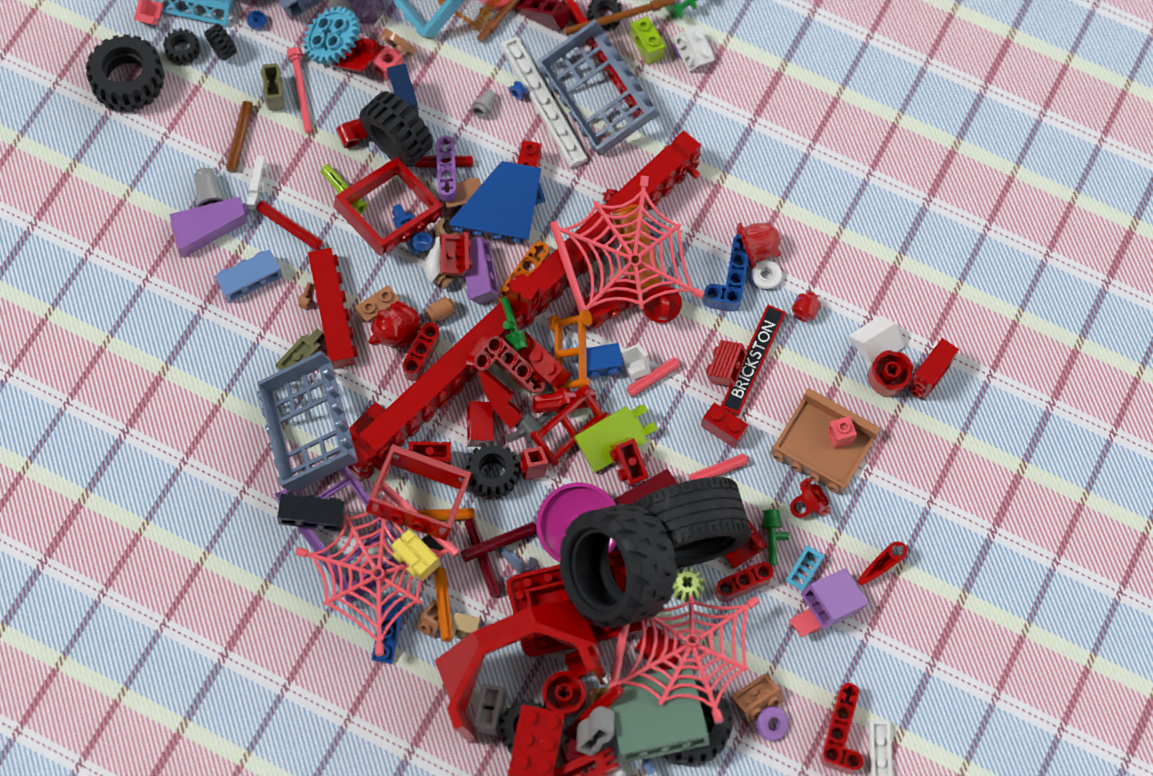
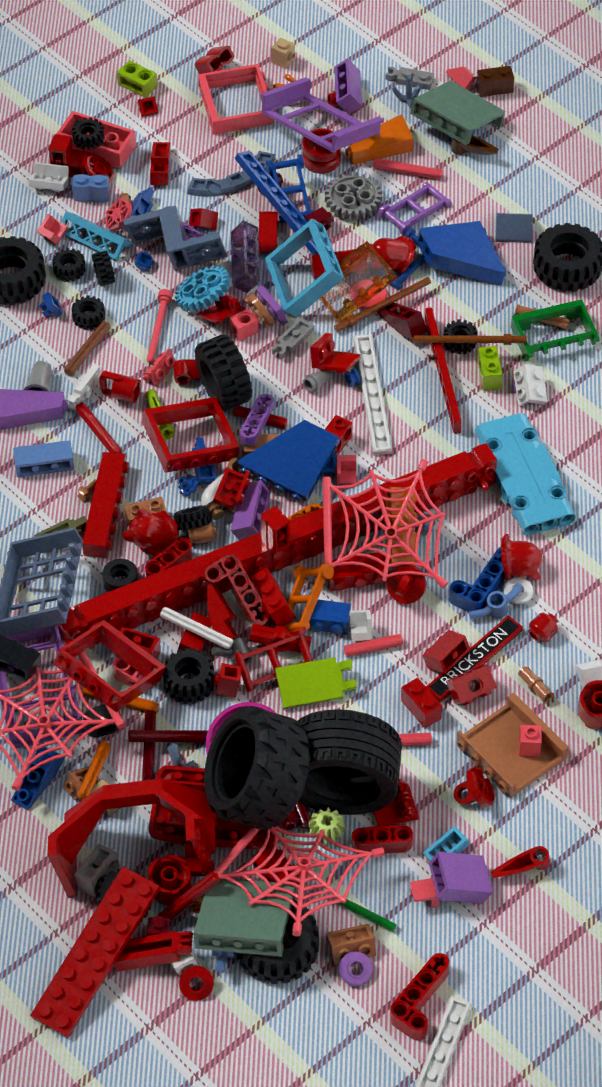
camera: 25 degrees right, 15 degrees down
(185, 99) = (51, 305): none -> blue tile
(225, 105) = (88, 304): none -> black tyre
(272, 86) = (133, 315): olive brick -> none
(298, 172) = (123, 386): none -> red piece
(324, 129) = (160, 368): none -> coral hinge
(380, 372) = (116, 568): none -> black tyre
(401, 85) = (246, 342): dark blue brick -> none
(405, 260) = (188, 484): none -> blue plant
(407, 33) = (271, 305): none -> medium lavender plate
(415, 555) = (82, 713): light yellow brick -> none
(422, 241) = (209, 471): blue tile -> none
(426, 297) = (192, 517): none -> black tyre
(433, 489) = (128, 675): none -> coral piece
(441, 62) = (293, 337): none -> light grey plate
(482, 419) = (196, 628): none -> white axle
(492, 77) = (325, 358): none -> red bracket
(516, 338) = (255, 567): green piece -> none
(553, 195) = (346, 469): none -> coral panel
(595, 730) = (180, 910): light grey brick -> none
(629, 461) = (316, 696): red brick -> none
(634, 88) = (443, 427): sand blue window -> none
(728, 146) = (526, 474): none -> medium azure panel
(753, 304) = (494, 598): none -> medium blue piece
(755, 396) = (460, 689): none -> red brick
(760, 662) = (369, 915): none -> green bar
(772, 521) = (430, 798): green piece -> none
(821, 369) = (535, 684): none -> nougat pin

